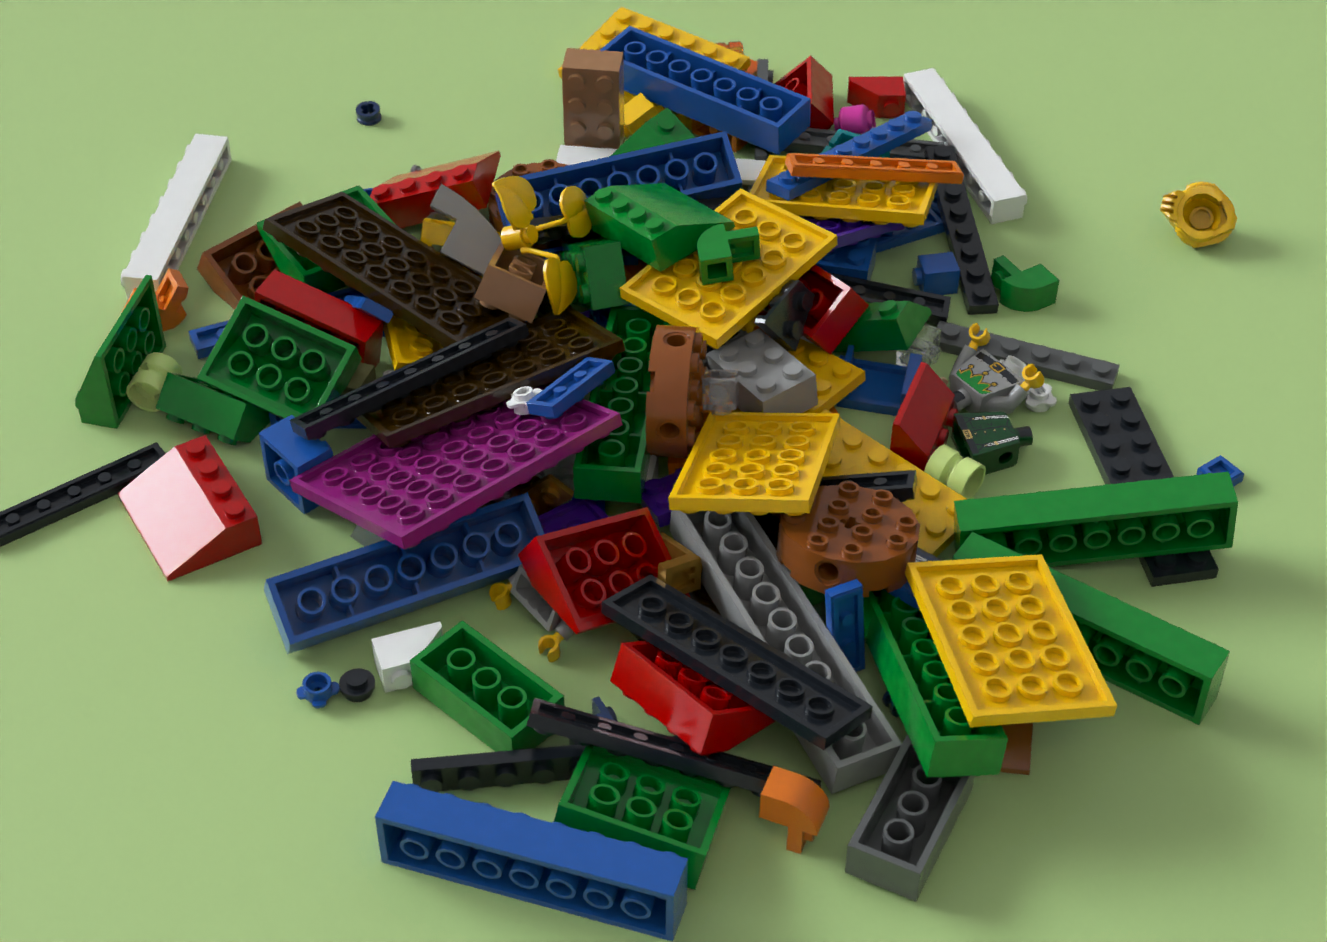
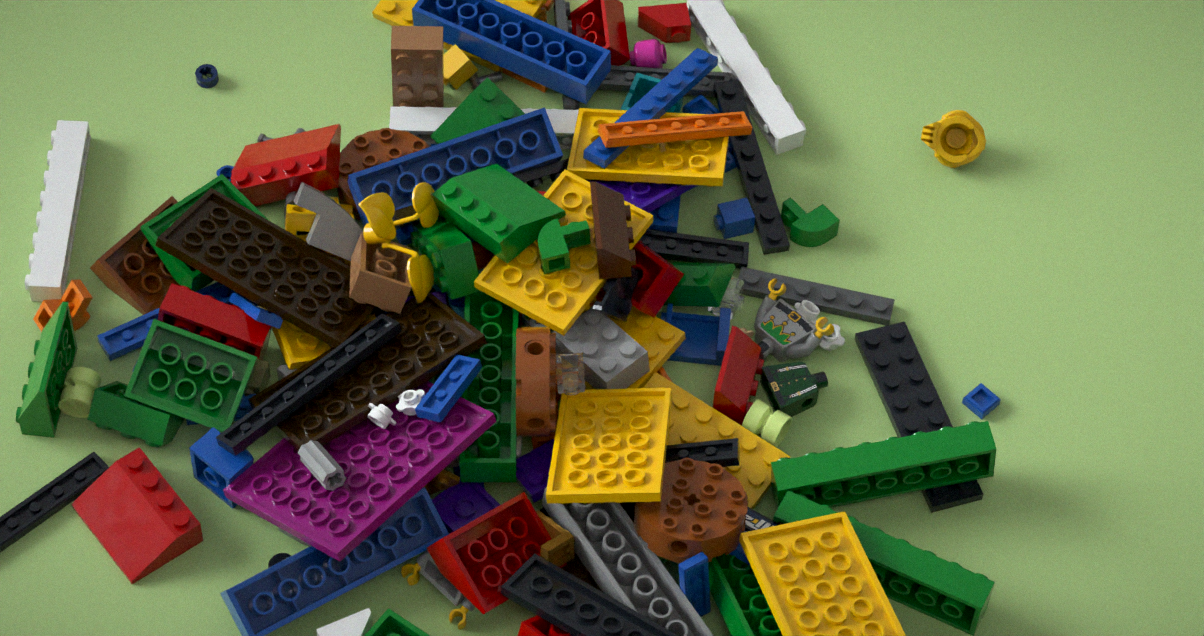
camera: 10 degrees left, 10 degrees up
(406, 453) = (322, 465): none -> light grey axle
(486, 410) = (381, 415): none -> white plate
(785, 241) = (611, 232): none -> reddish brown slope

